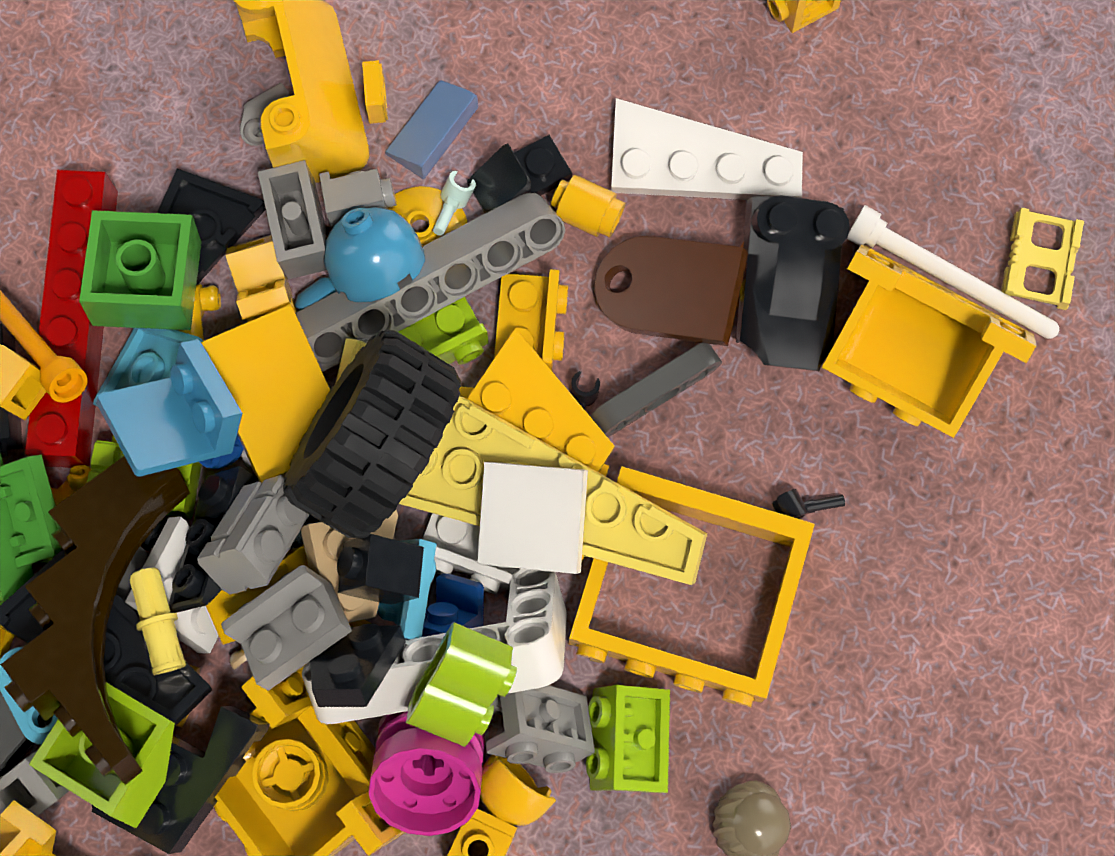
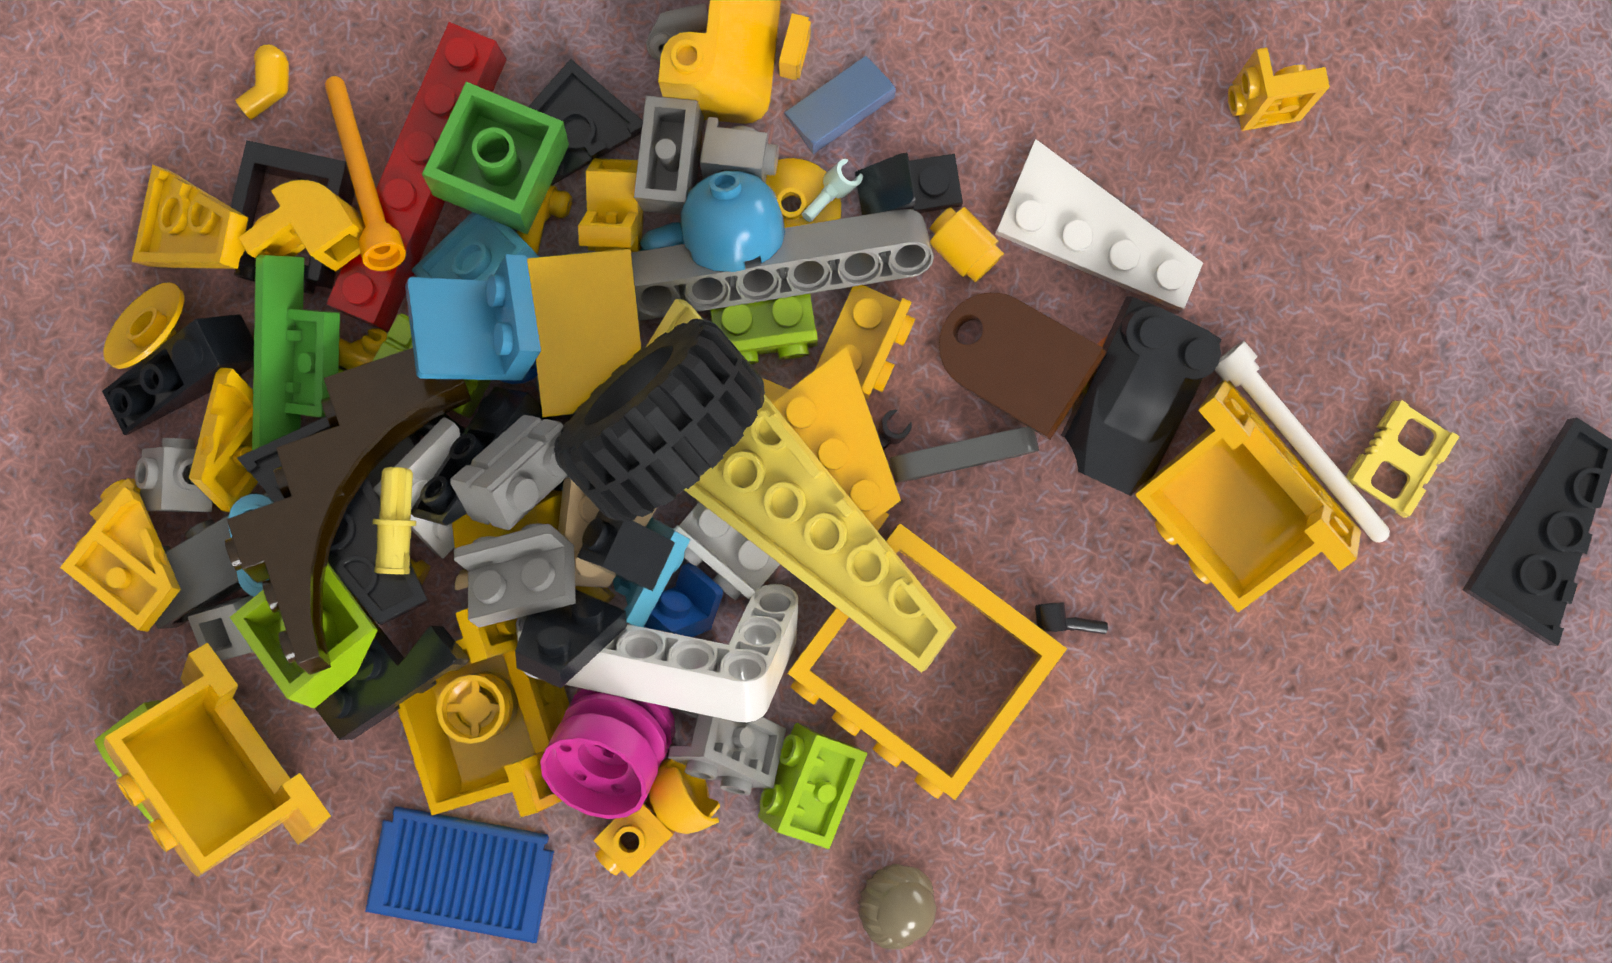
camera: 25 degrees right, 10 degrees up
(461, 685) = (661, 697): lime brick -> none
(532, 517) = (792, 547): white tile -> none

